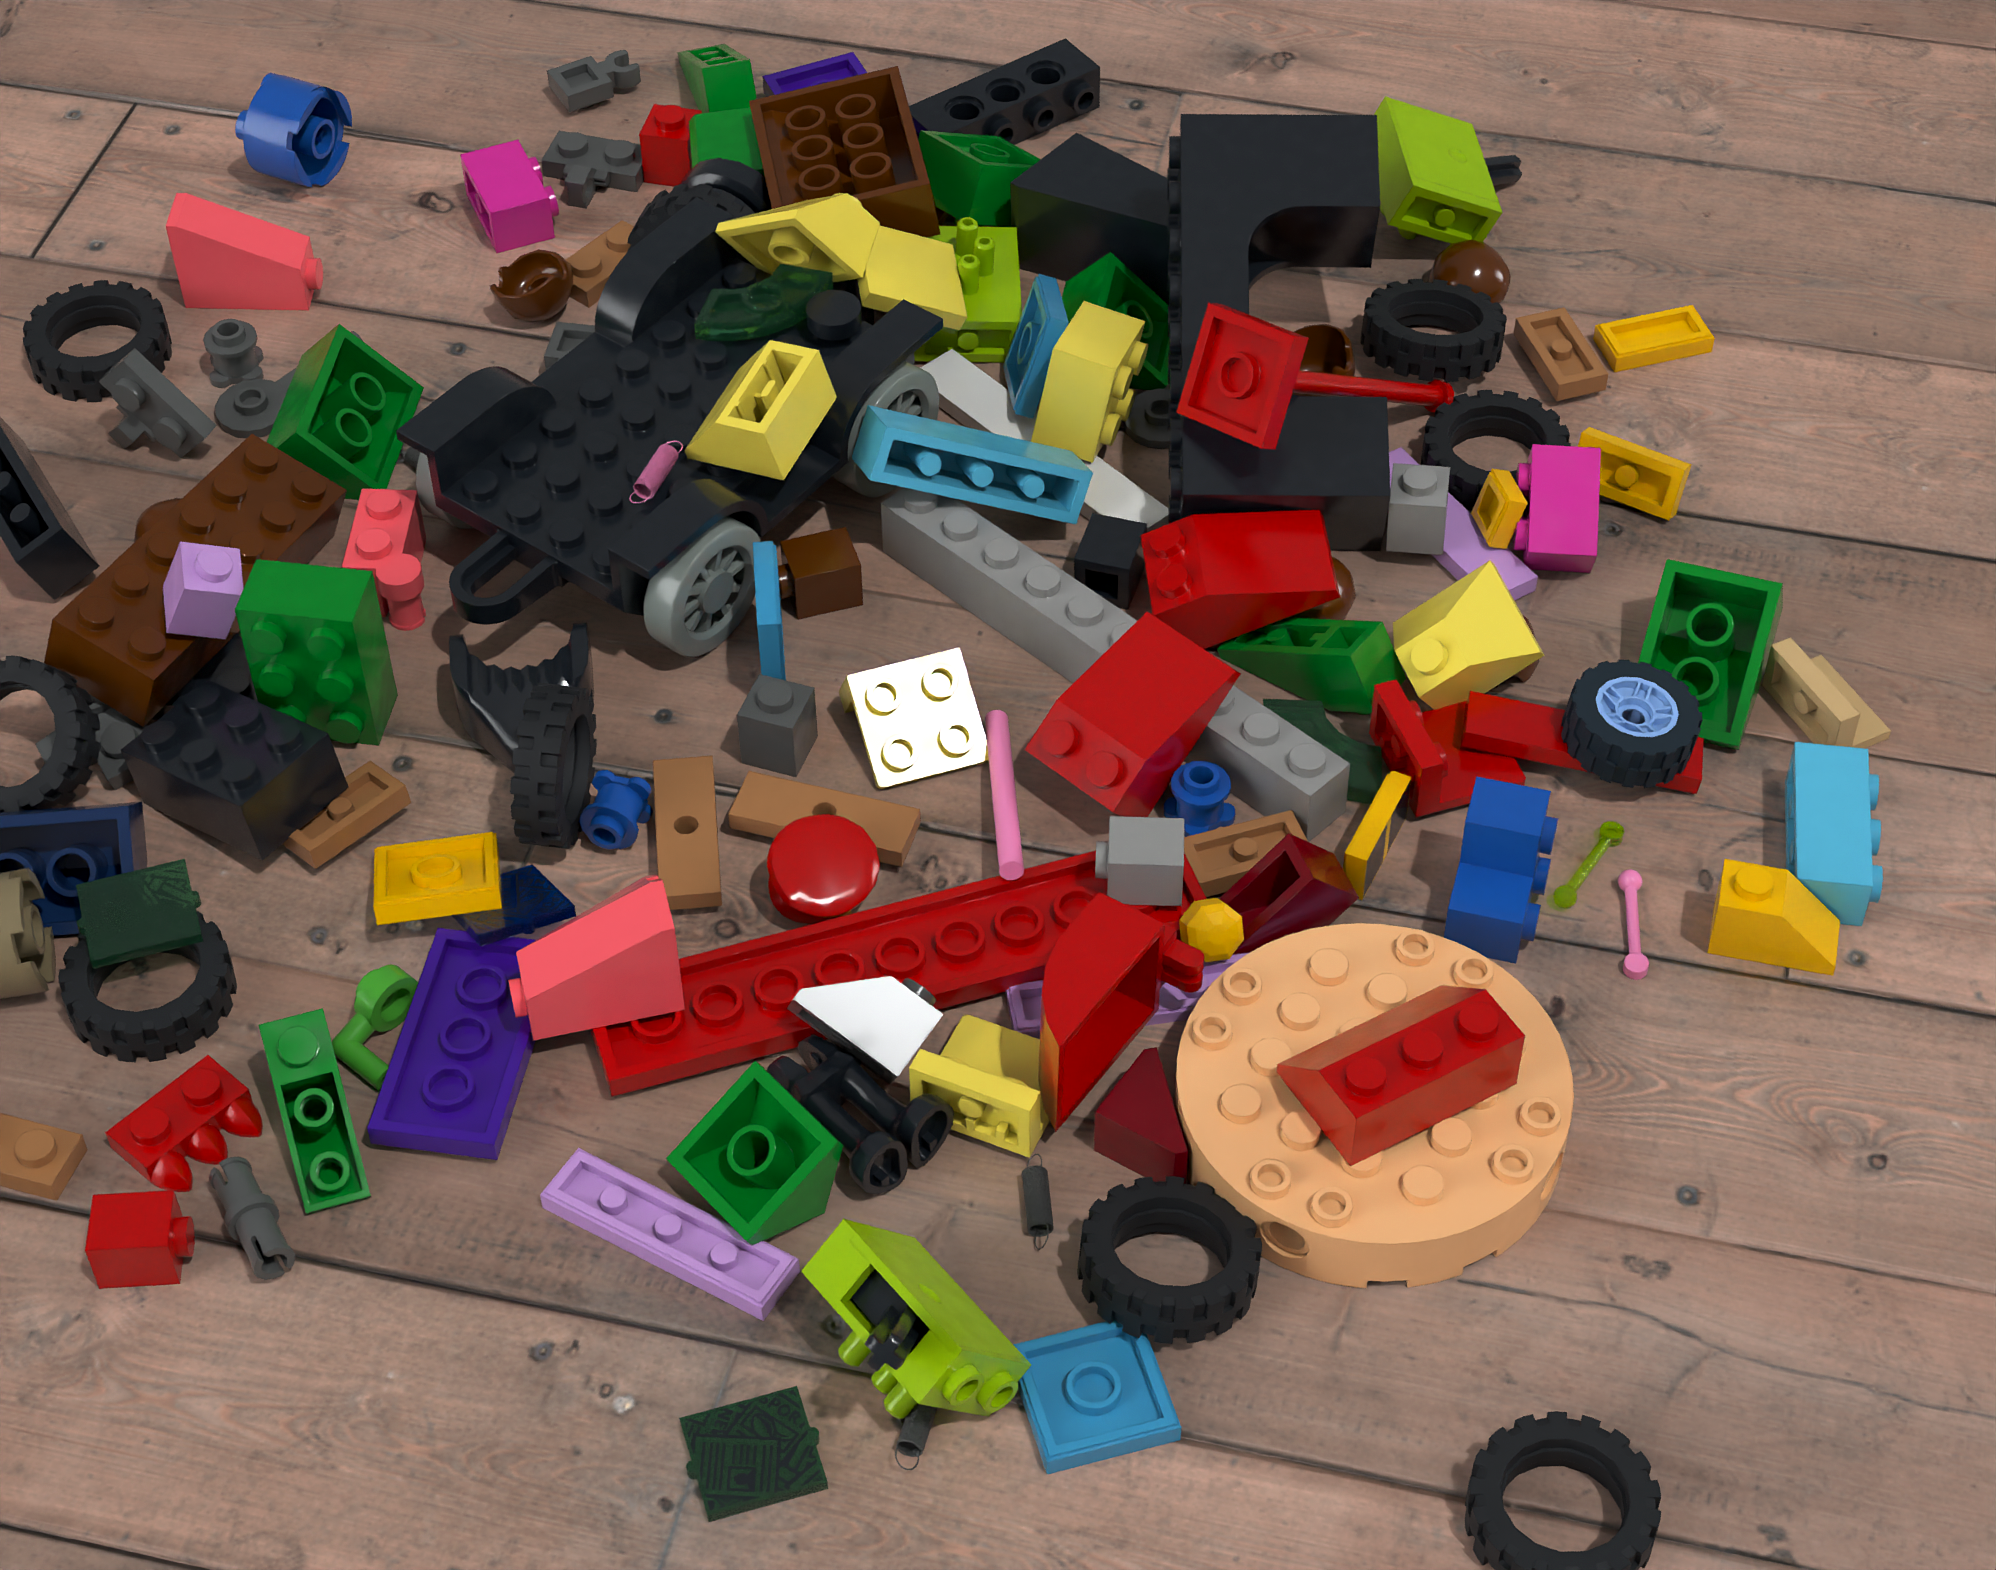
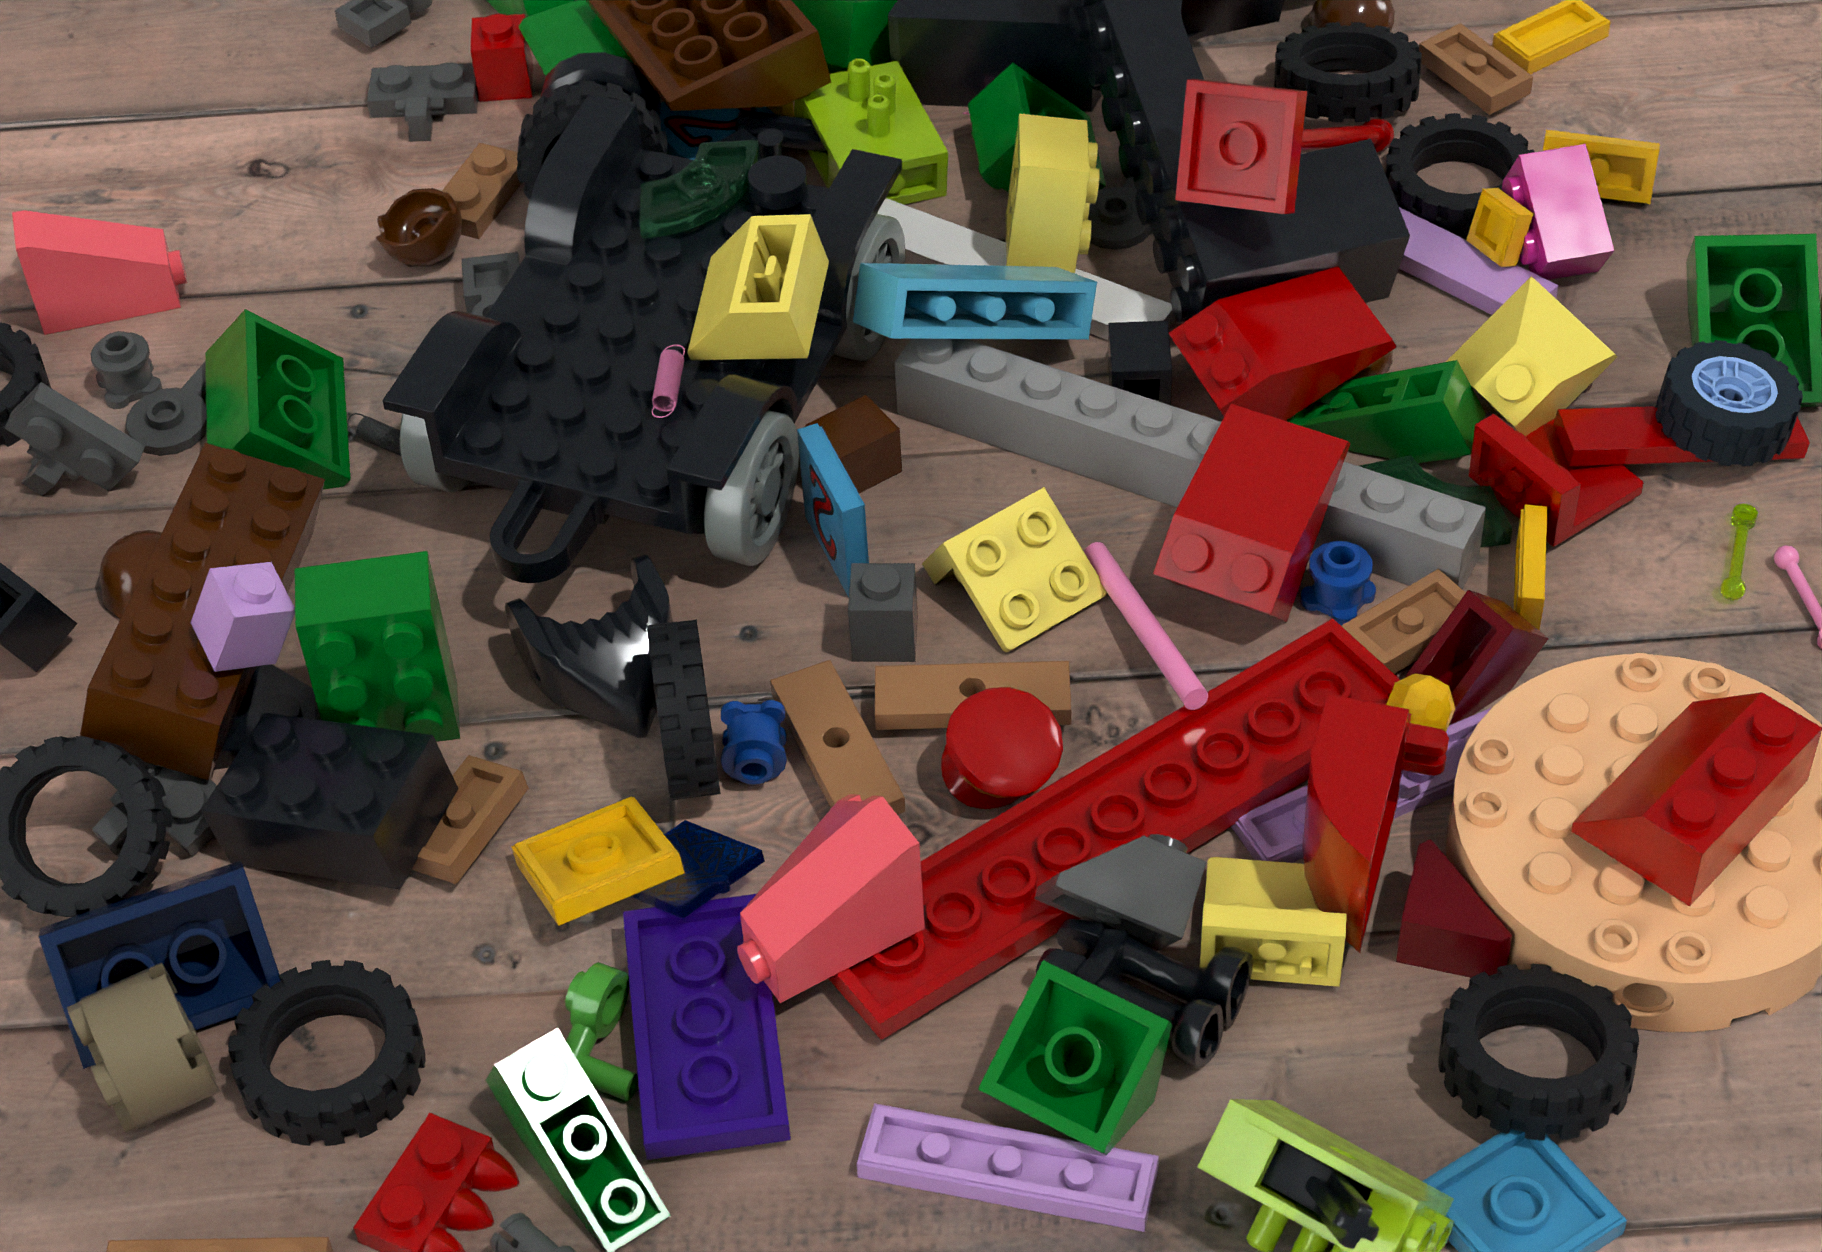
camera: 15 degrees left, 0 degrees up
(139, 913) = (294, 980): clear green piece -> none
(295, 130) = (97, 125): blue brick -> none
(390, 542) = (386, 522): coral hinge -> none
(509, 195) = (350, 144): dark pink brick -> none
(812, 234) = (723, 105): light yellow slope -> none
(916, 271) = (817, 124): light yellow tile -> none
(1032, 345) = (977, 170): dark azure tile -> none
(1037, 1201) = (1369, 1028): dark grey piece -> none
(1143, 860) = (1329, 654): light grey brick -> none
(1418, 509) = (1433, 246): light grey brick -> none
(1501, 869) = (1671, 572): blue brick -> none

